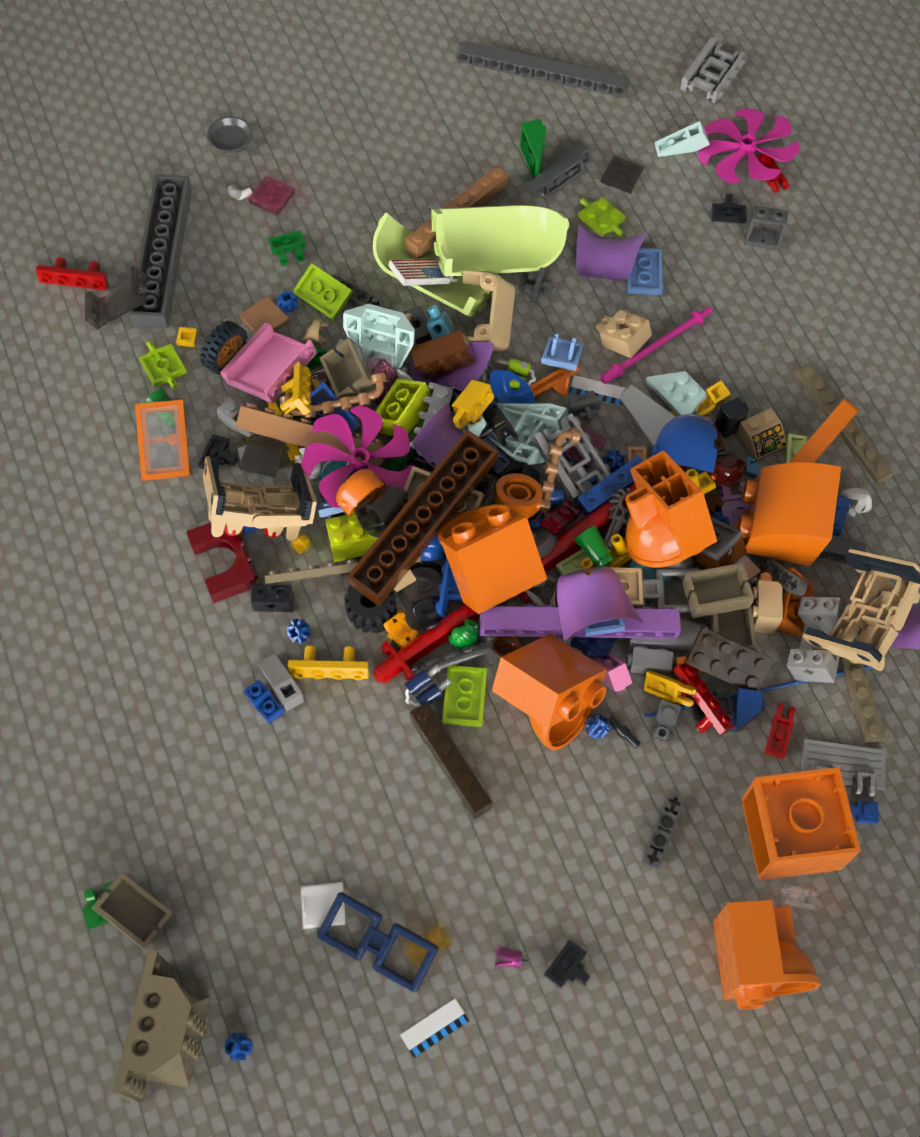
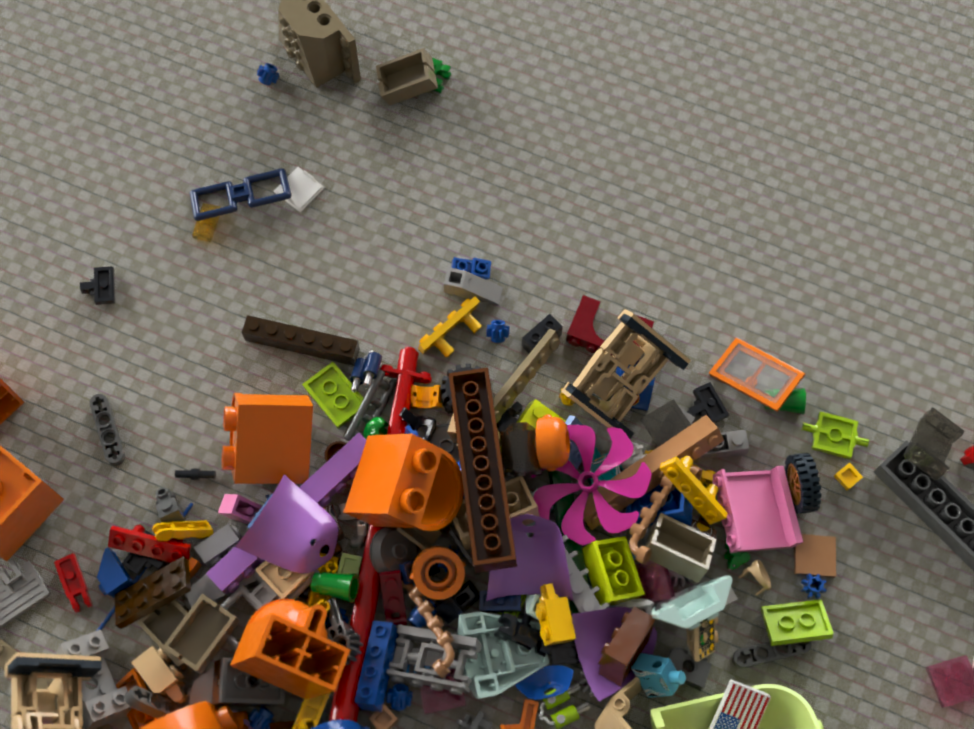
camera: 135 degrees right, 5 degrees up
(287, 243) = (883, 644): green plate -> none
(434, 1028) = (159, 185): white sticker -> none
(514, 956) = (142, 258): flat silver piece -> none
(597, 726) = (214, 457): blue gear -> none

